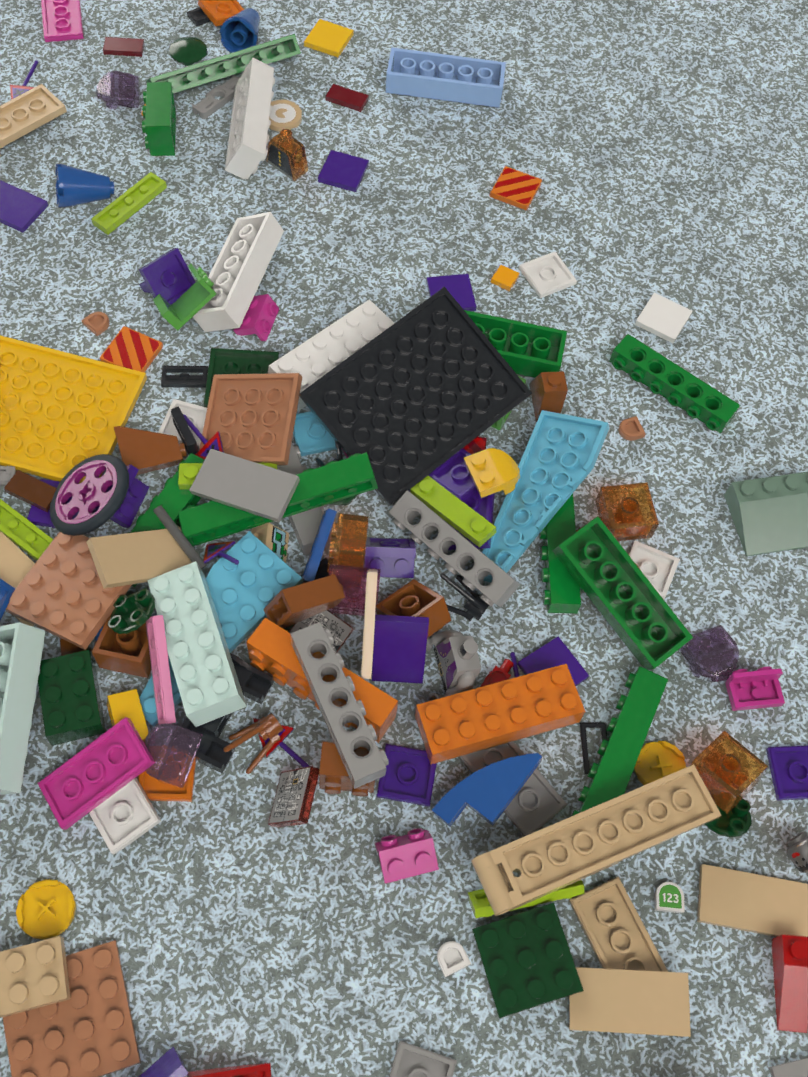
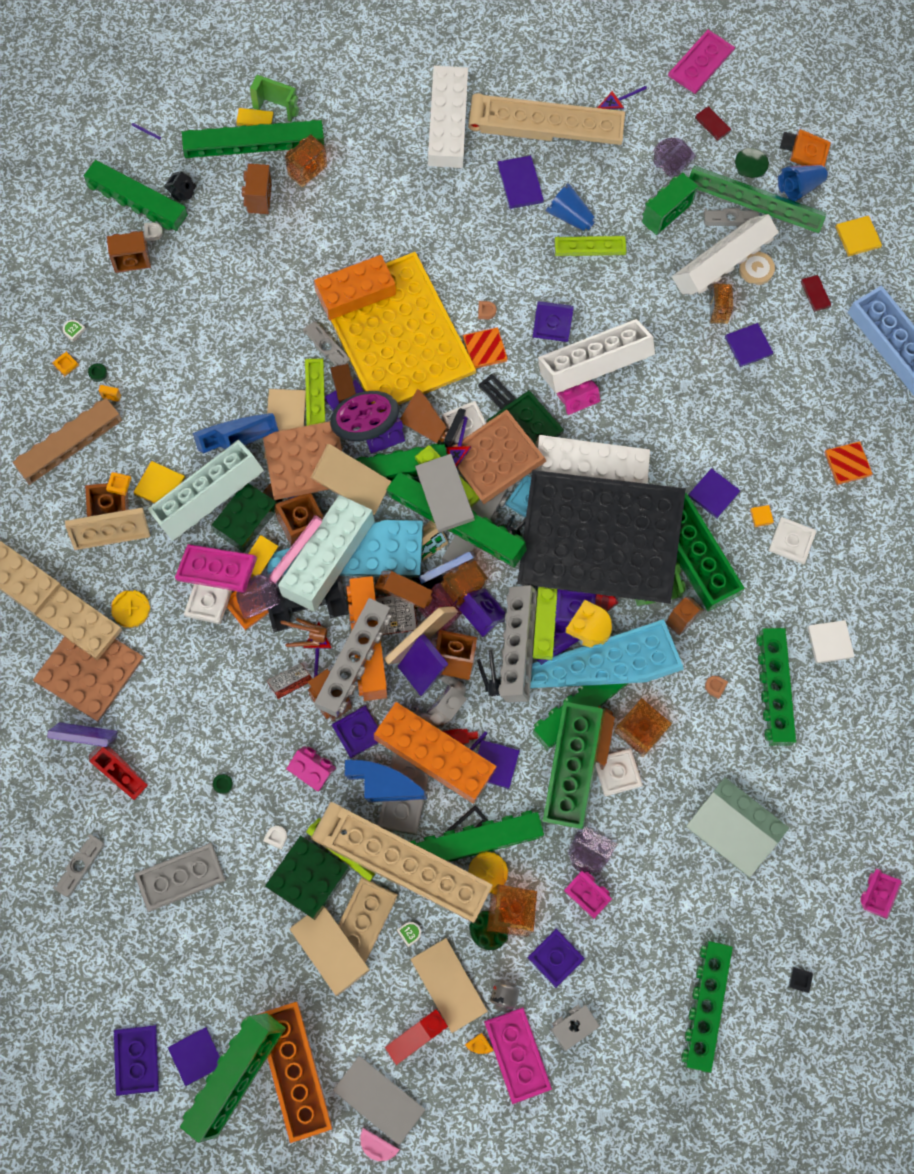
camera: 50 degrees right, 10 degrees up
(131, 611) = (313, 503): dark green dish -> none
(178, 536) = (383, 487): dark grey bar -> none
(190, 302) = (535, 349): bright green panel -> none
(215, 549) = (395, 512): dark purple piece -> none
(342, 970) = (222, 784): none -> dark green tile

